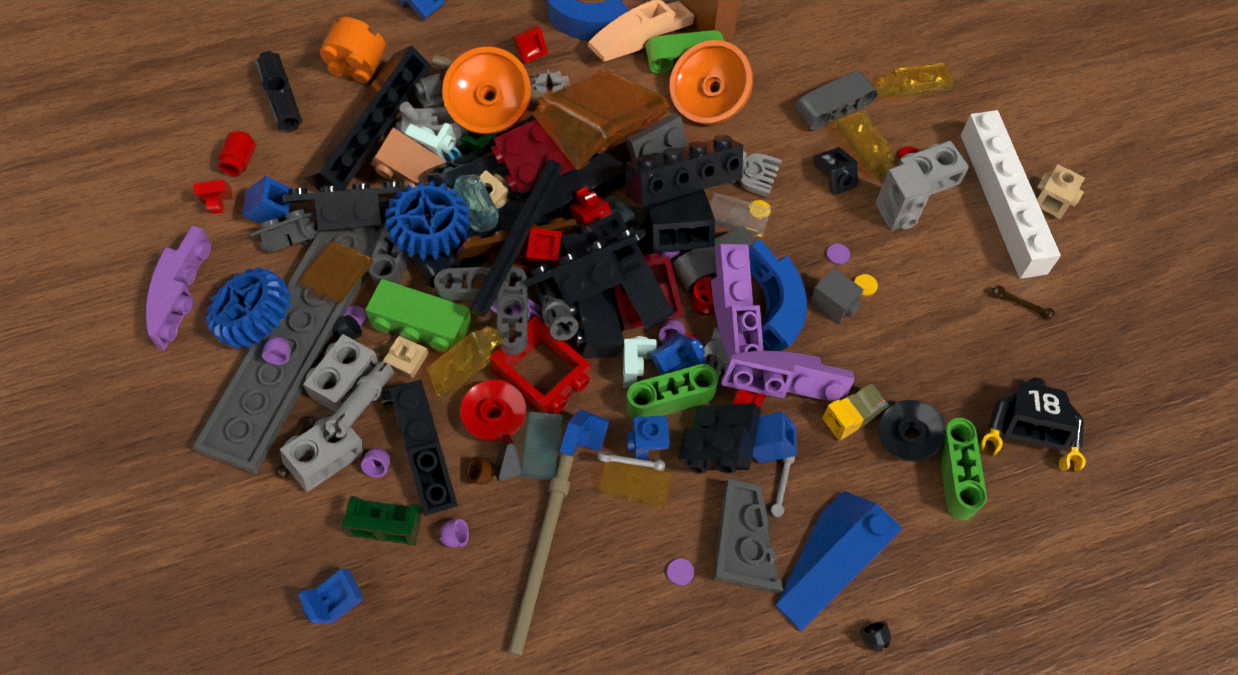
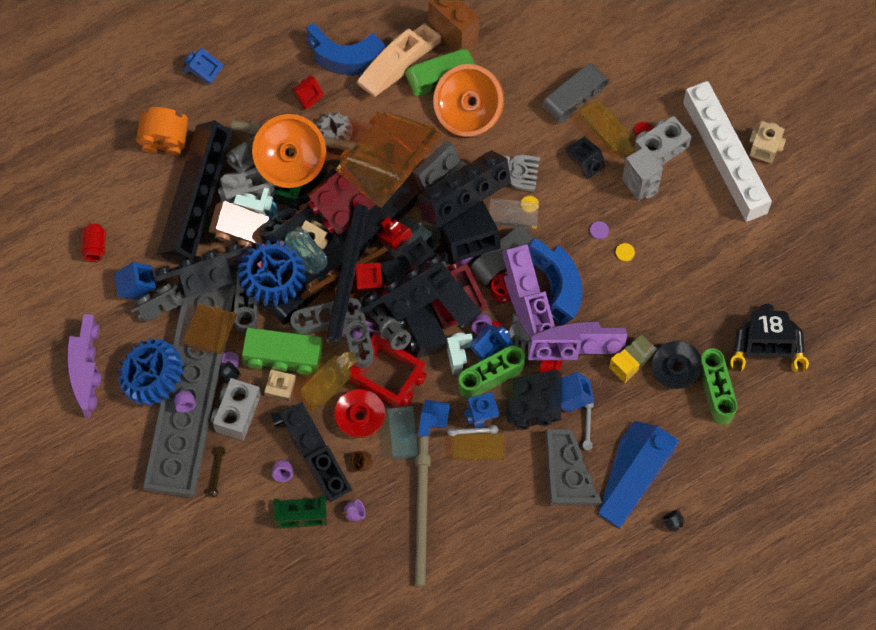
camera: 10 degrees left, 5 degrees up
(213, 194) = (86, 281): red tile -> none
(278, 91) = (116, 189): black piece -> none
(327, 457) = (246, 473): light grey brick -> none
(331, 598) = (280, 573): blue bracket -> none
(367, 390) = (261, 418): light grey pin -> none
(507, 461) = (380, 448): black slope -> none
(680, 572) = (525, 504): medium lavender piece -> none
(837, 296) = (604, 268): dark grey brick -> none
(915, 80) = (638, 61): clear yellow hinge -> none
(999, 292) = (730, 237): dark brown hinge -> none

